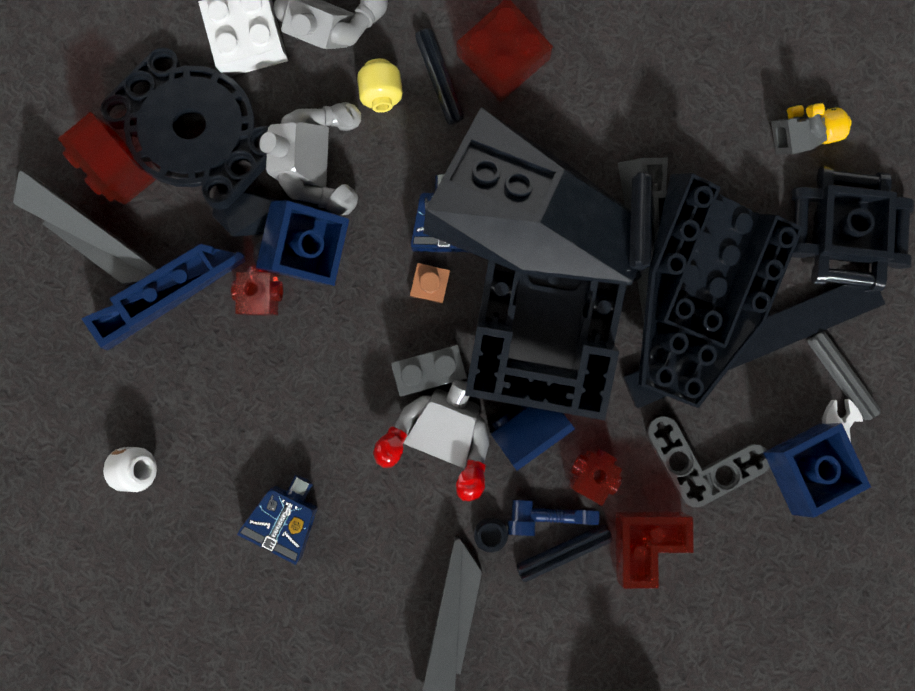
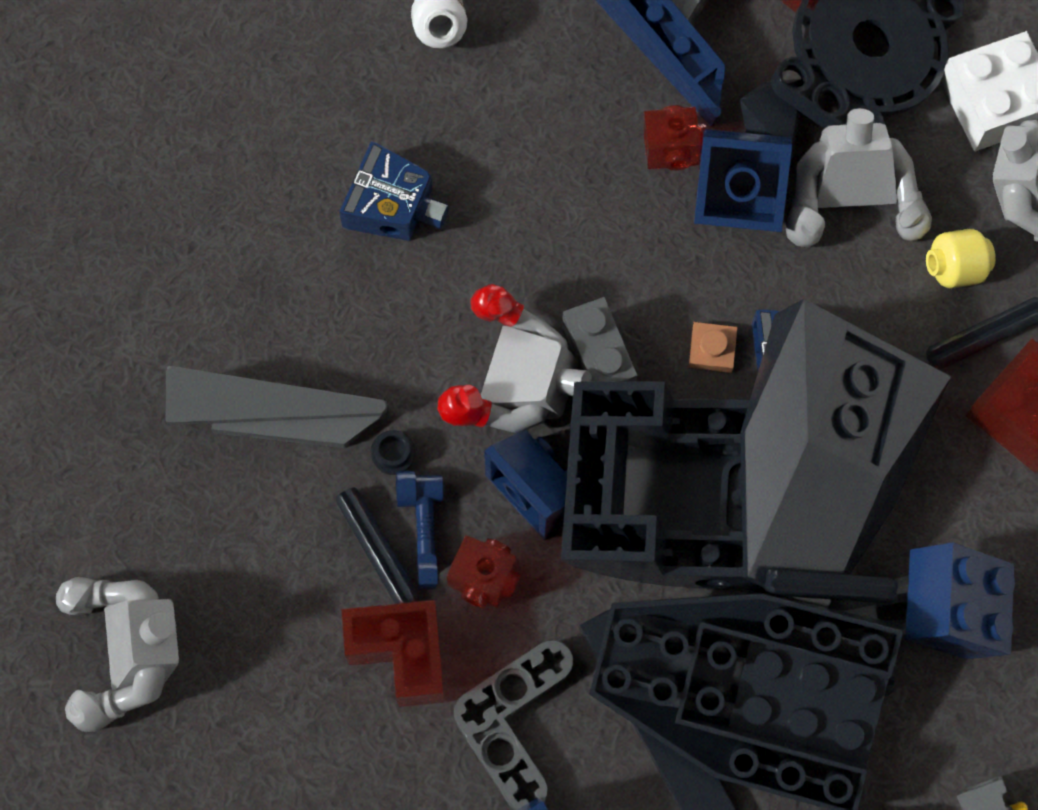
camera: 80 degrees right, 15 degrees down
(654, 129) = (960, 601): none -> dark blue brick

